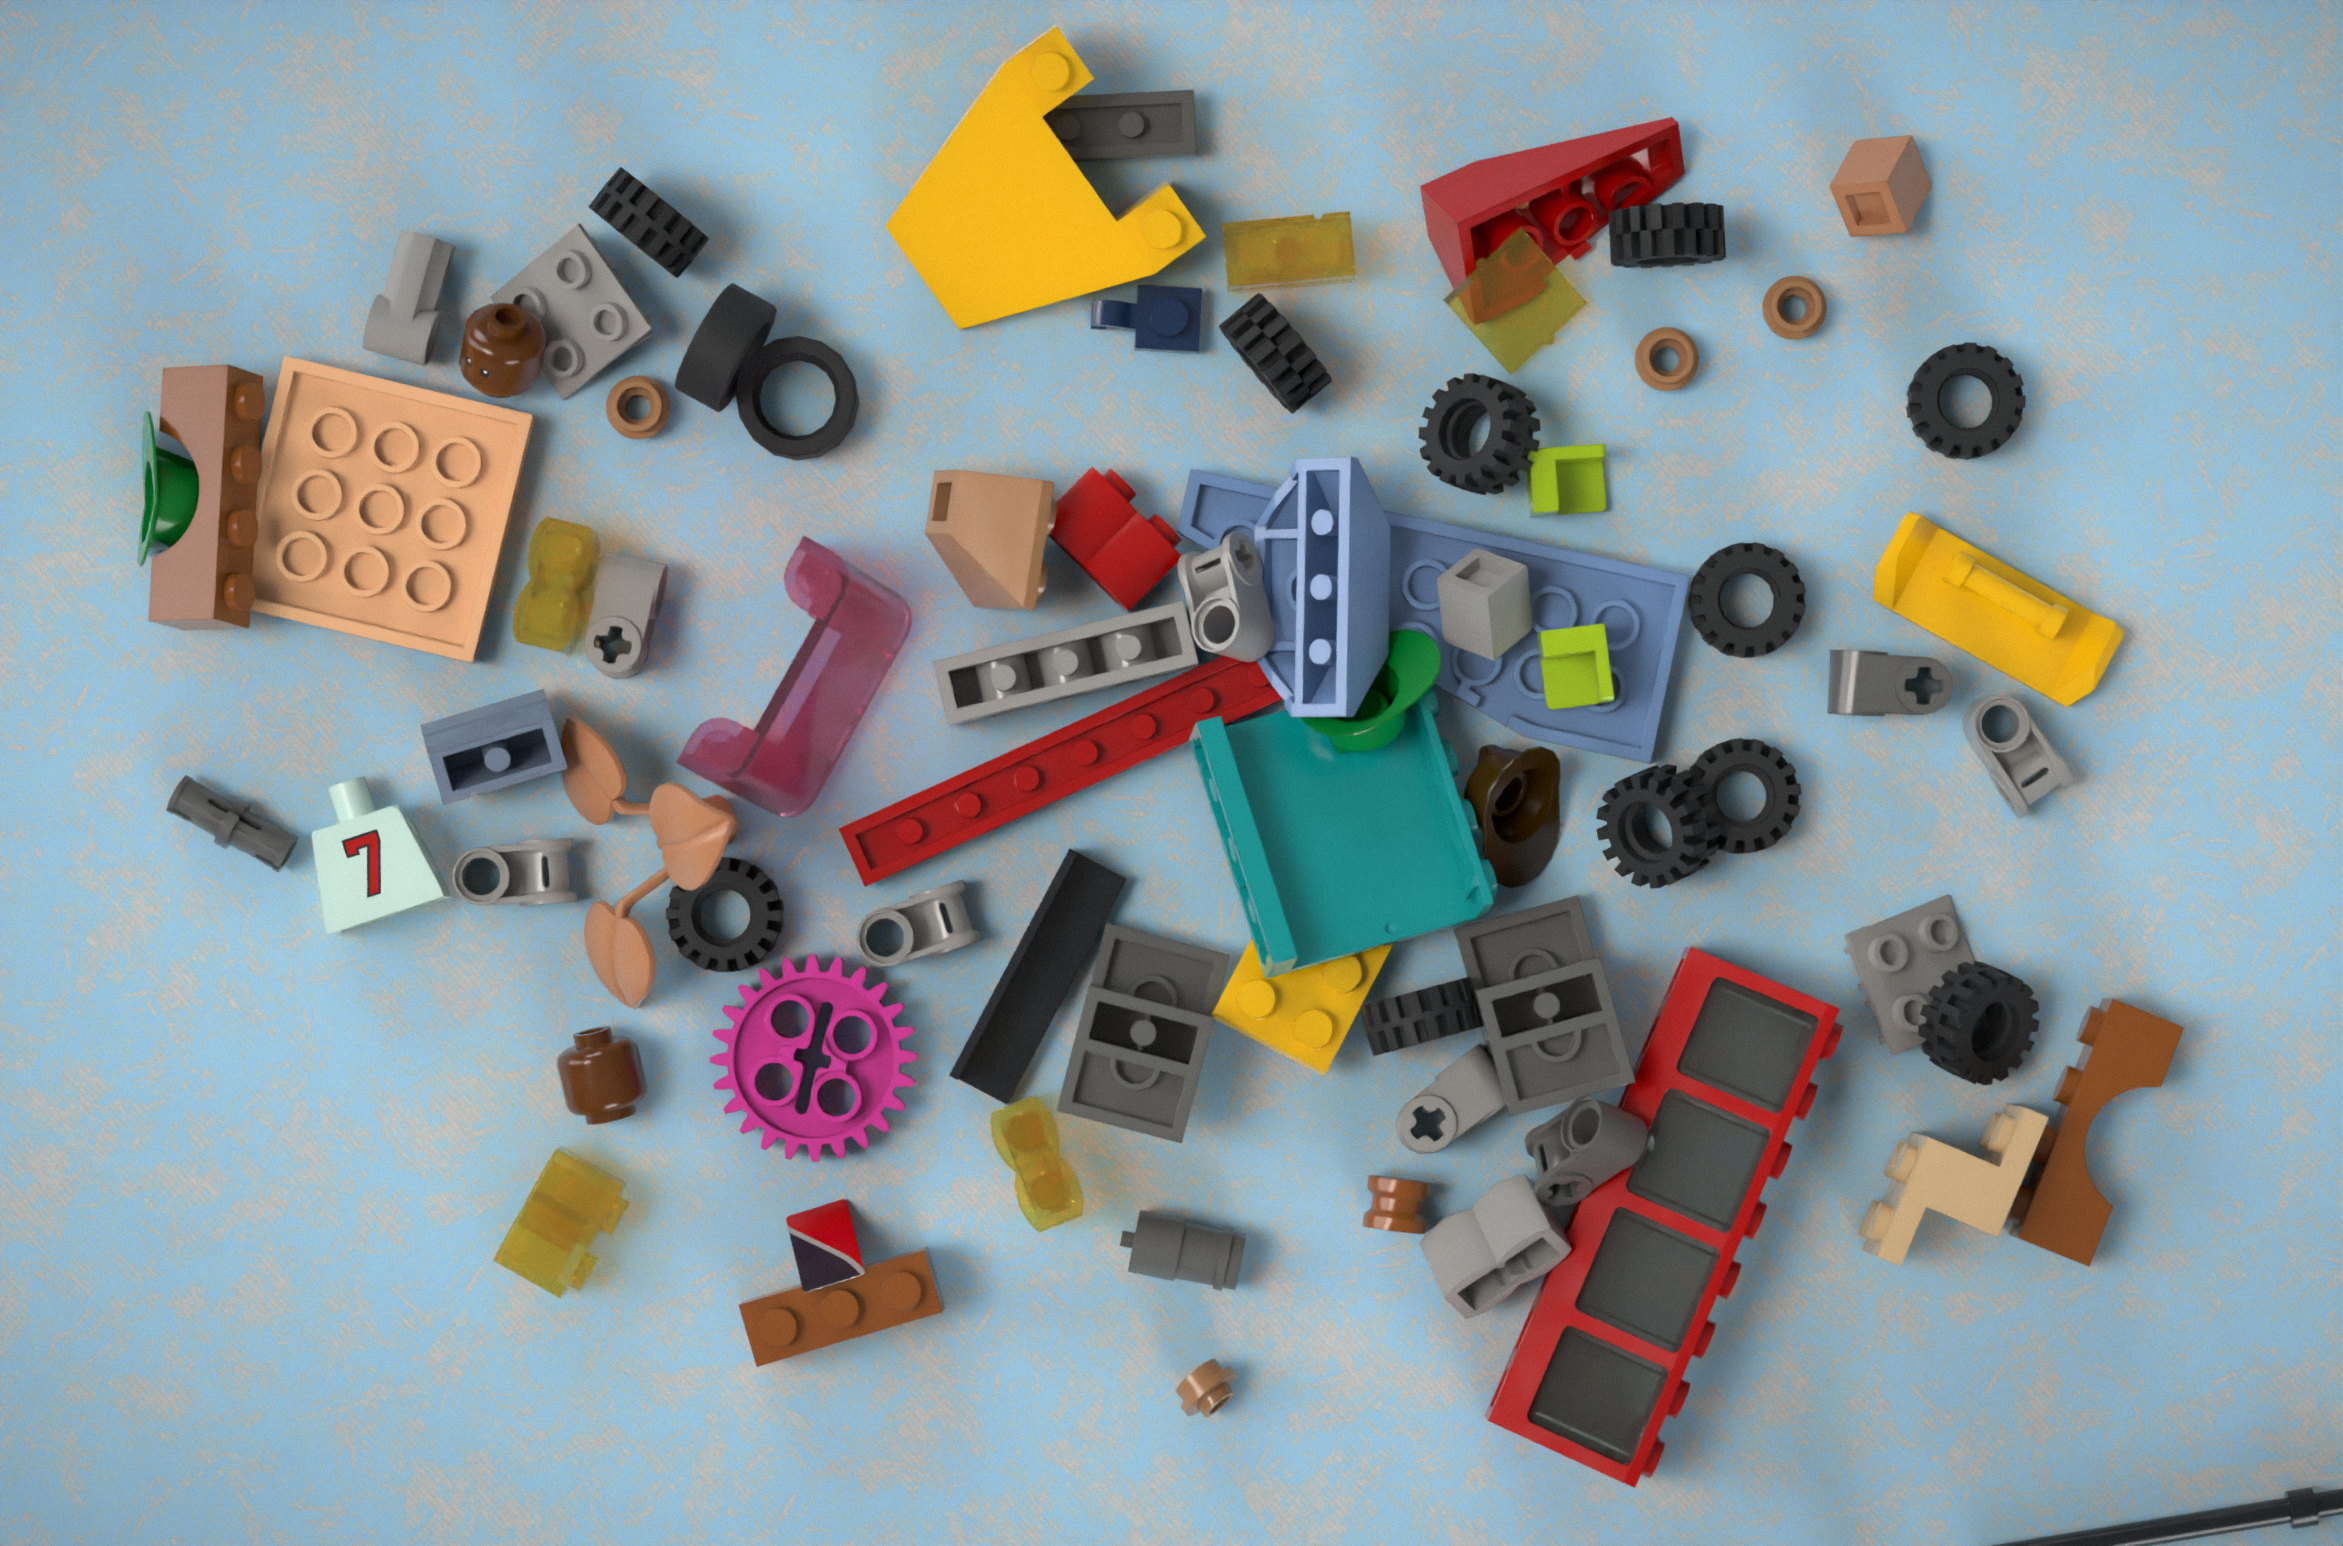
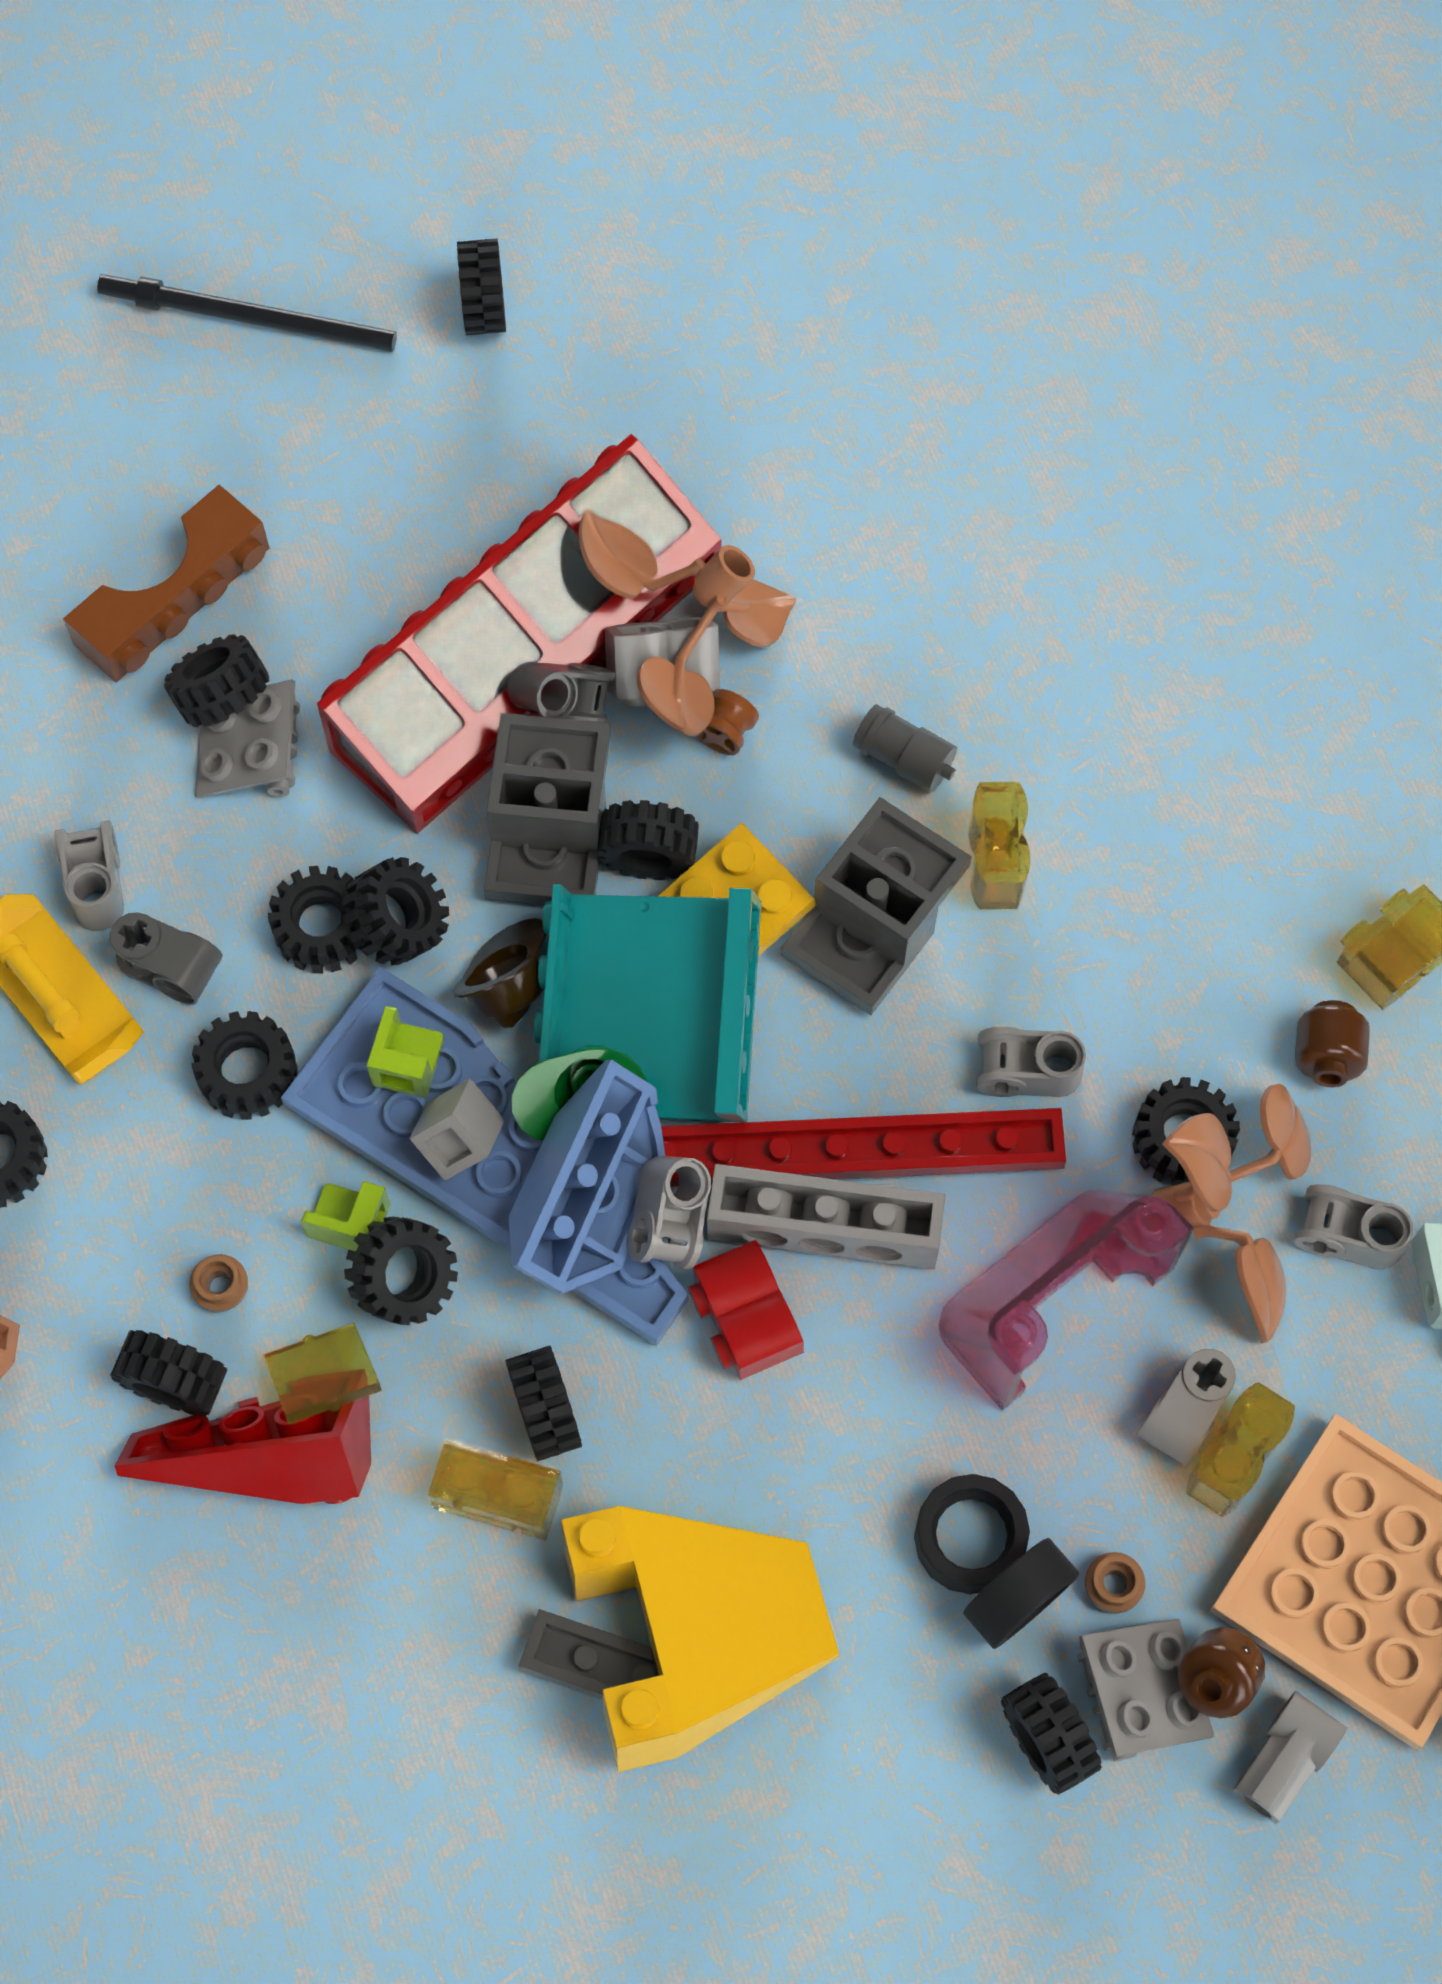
camera: 160 degrees left, 20 degrees down
(493, 746) = (1341, 1332): sand blue brick -> none
(757, 1042) = (1194, 1021): dark pink gear -> none
(825, 1245) = (1193, 848): sticker -> none
(881, 1298) = (1195, 801): dark orange brick -> none
(992, 535) = (844, 1343): medium nougat slope -> none
(1038, 976) = (942, 994): black panel -> none
(1161, 318) = (632, 1482): dark blue plate -> none
(1206, 1389) = (928, 647): medium nougat plate -> none
(1433, 1355) = (722, 584): none -> nougat plant
(1462, 1096) = (650, 775): light grey piece -> none
(1799, 288) = (86, 1270): medium nougat plate -> none
(1952, 1182) = (291, 573): tan bracket -> none

